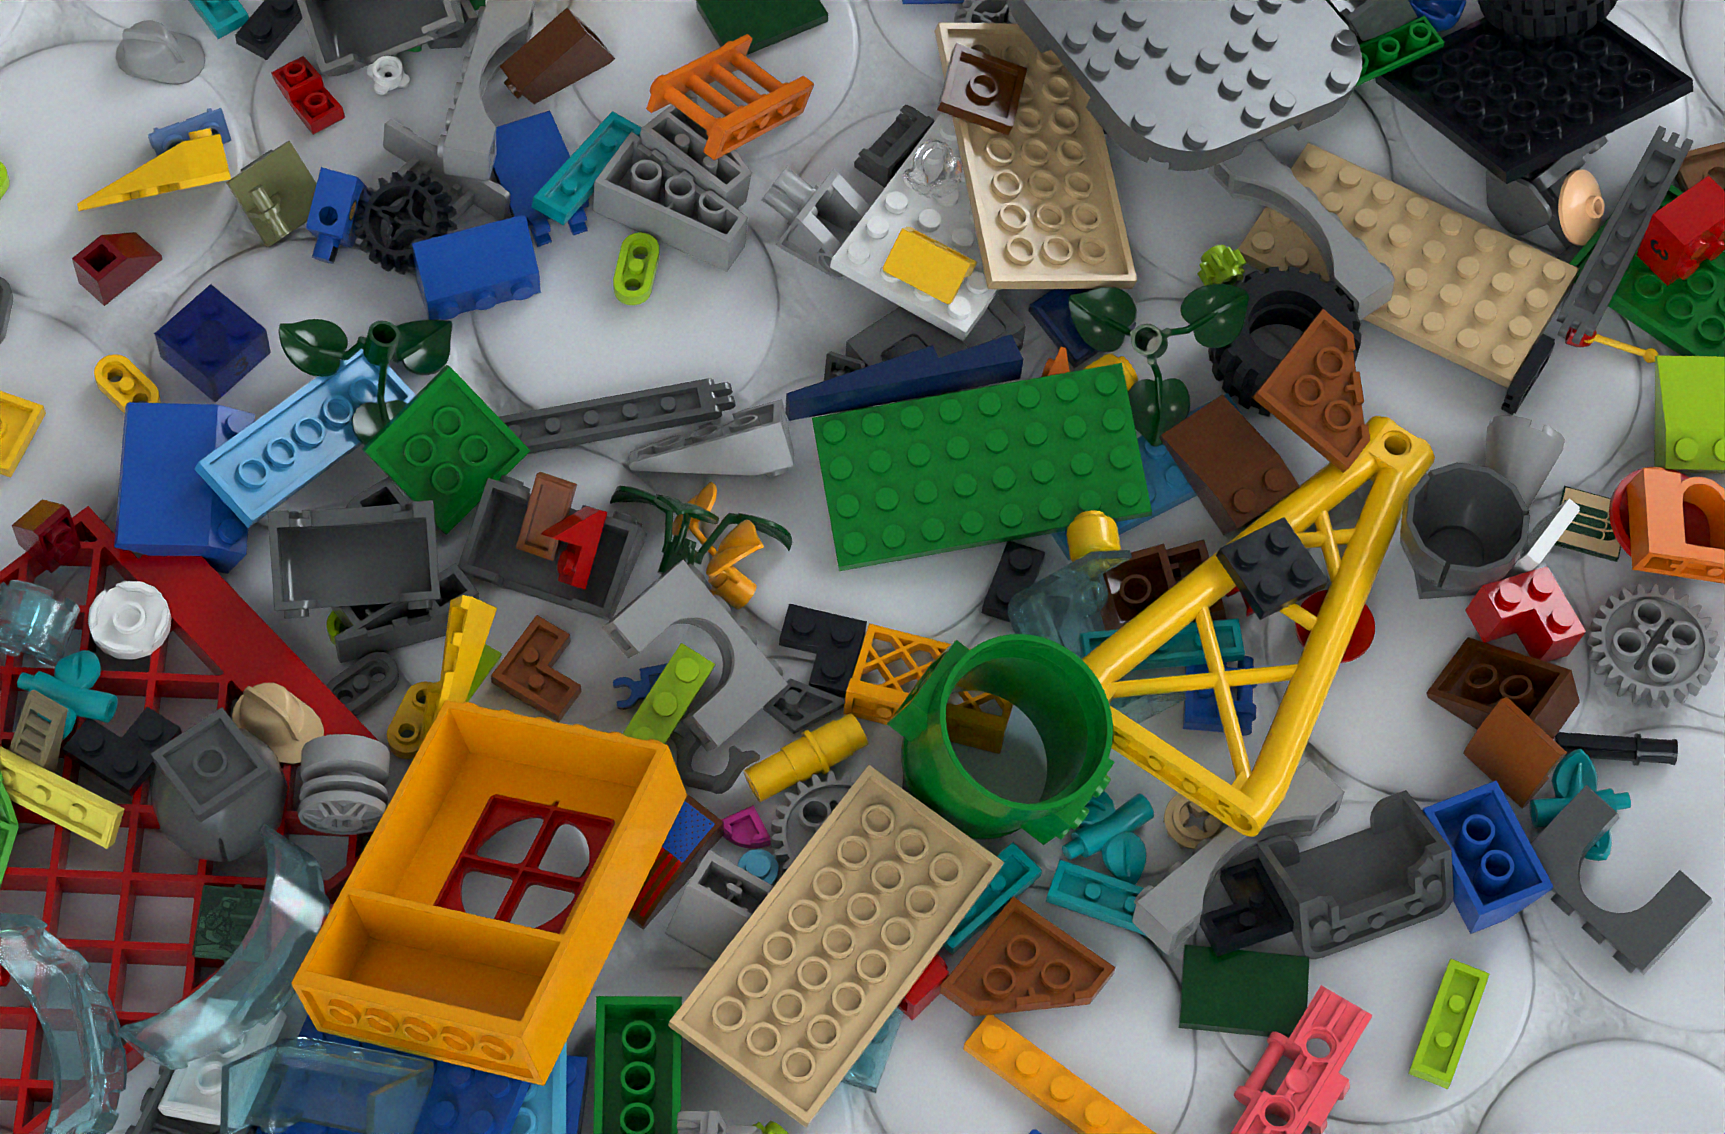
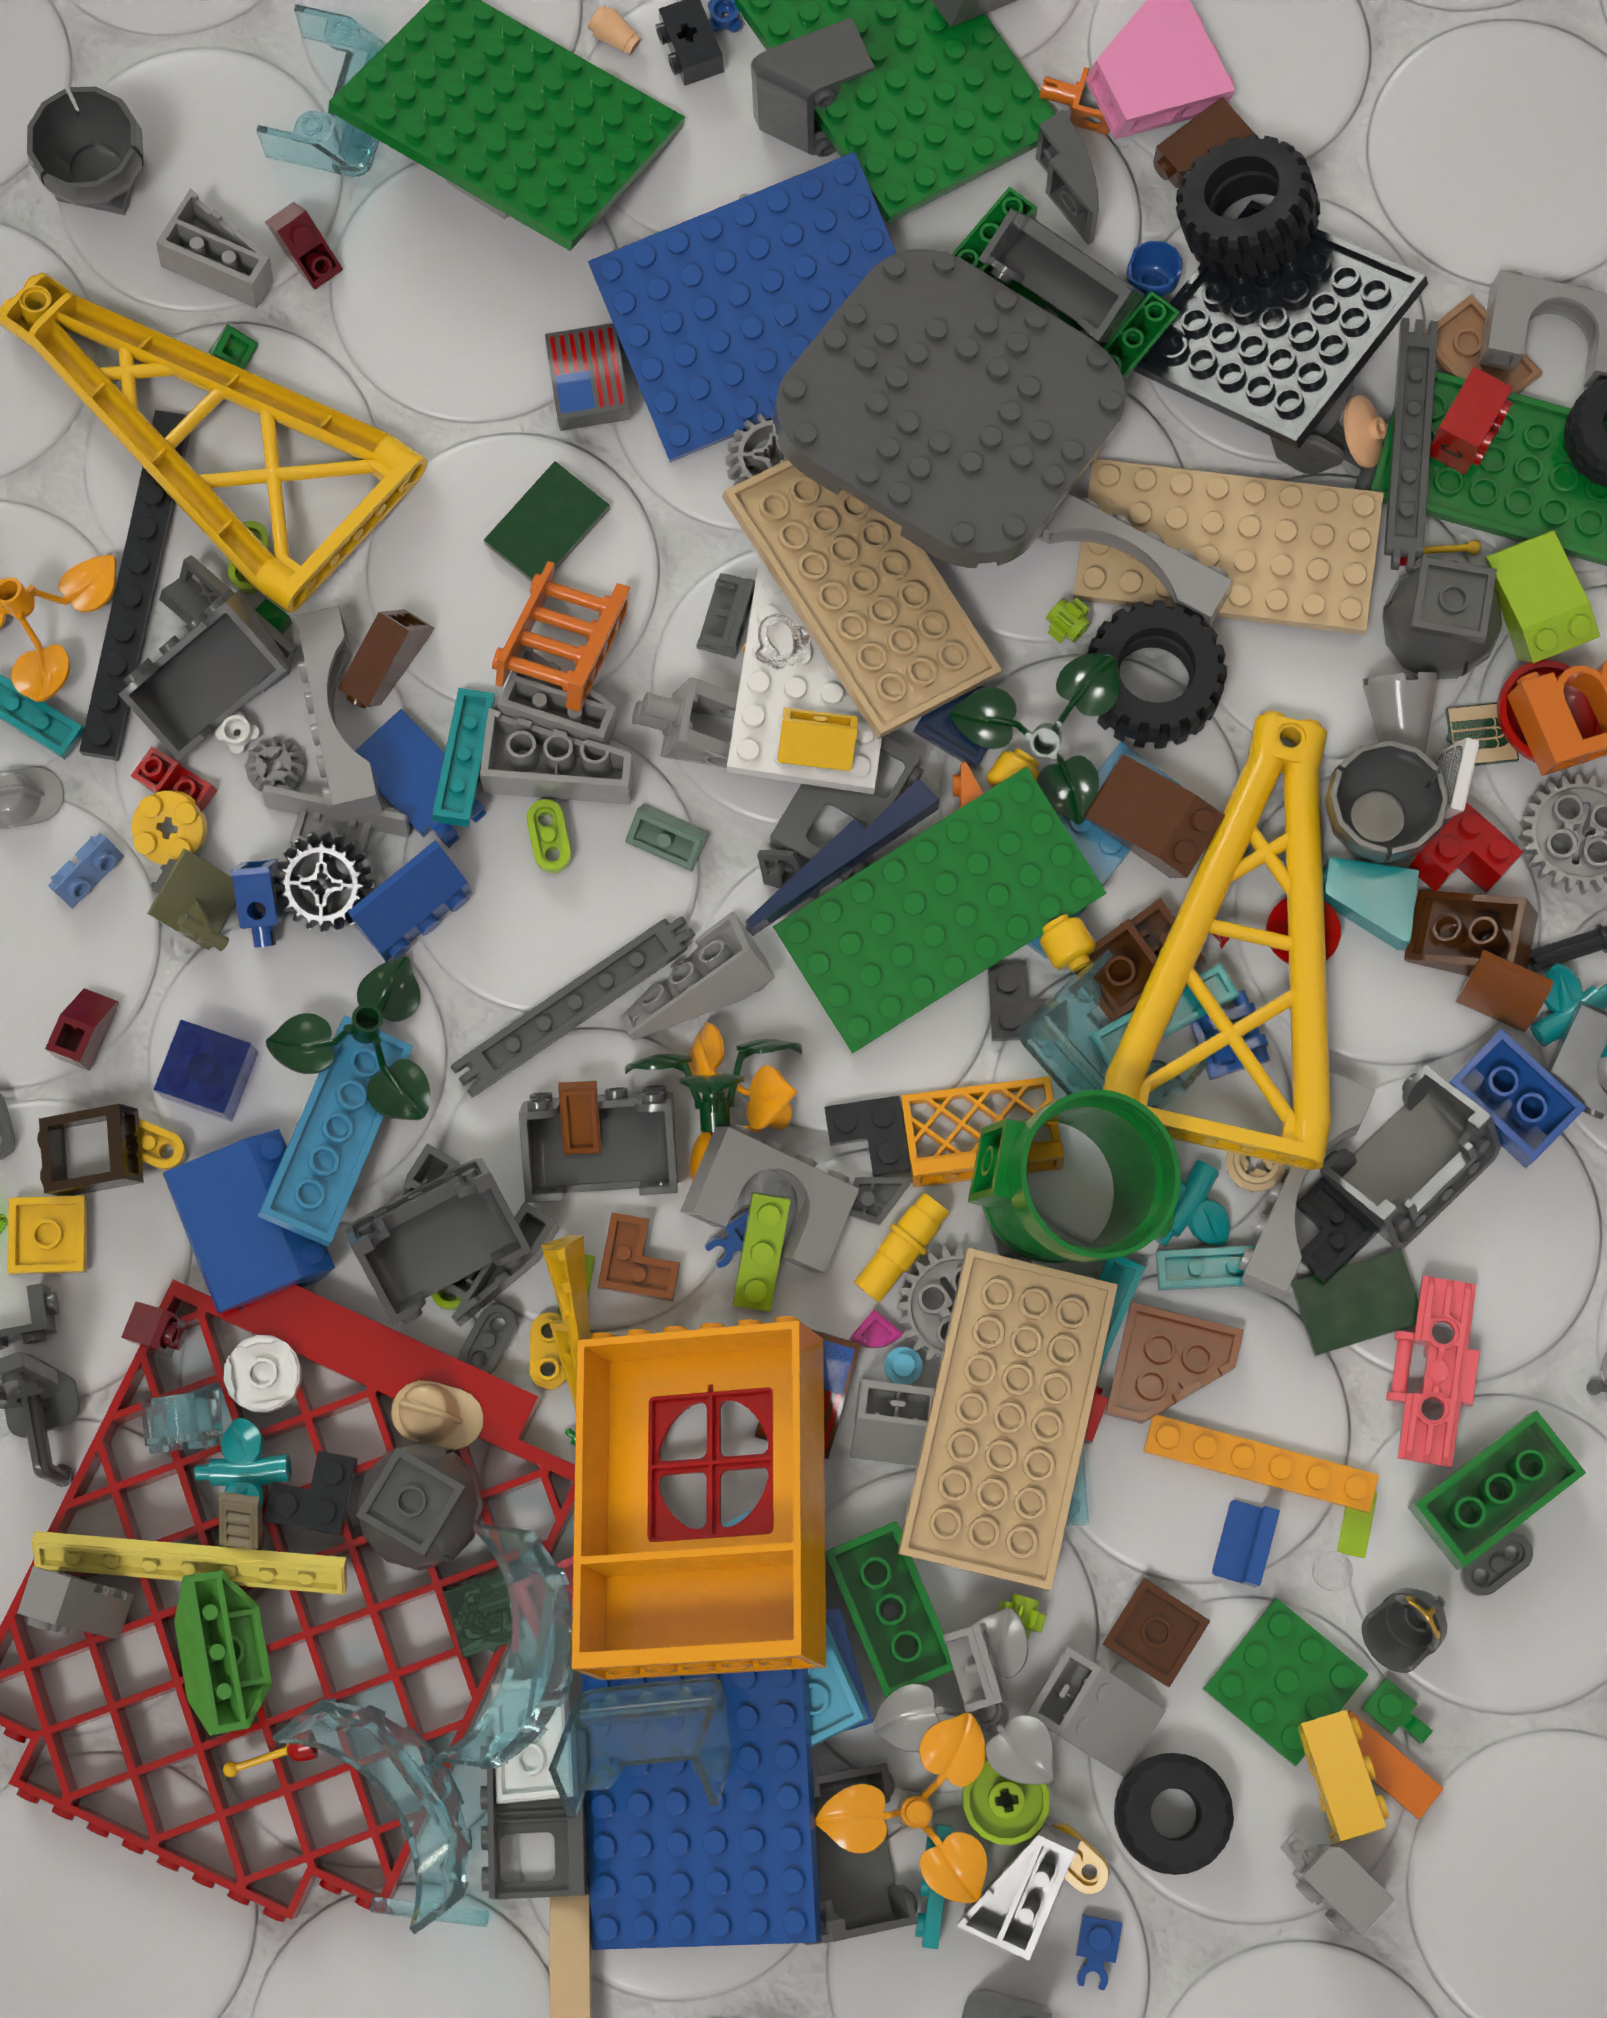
camera: 15 degrees left, 15 degrees up
(97, 380) = (123, 1145): none -> dark brown window
(181, 167) = (101, 907): yellow wedge -> none
(277, 107) = (153, 812): none -> yellow plate
(343, 784) = (526, 1457): light grey wheel -> none
(425, 112) = (291, 760): none -> light grey gear
(446, 448) = (466, 1095): green plate -> none
(582, 534) = (620, 1128): red slope -> none
(716, 784) = (821, 1305): dark grey helmet -> none
(748, 313) = (667, 836): none -> sand green slope
(982, 89) = (793, 545): reddish brown plate -> none
(1272, 568) = (1236, 911): black plate -> none
(1320, 392) = (1211, 722): dark orange plate -> none
(1417, 621) = (1373, 897): none -> teal slope
(1449, 1023) = (1539, 1260): lime plate -> none
(1528, 374) = (1377, 613): black tile -> none
(1595, 394) = (1443, 617): none -> dark grey plate

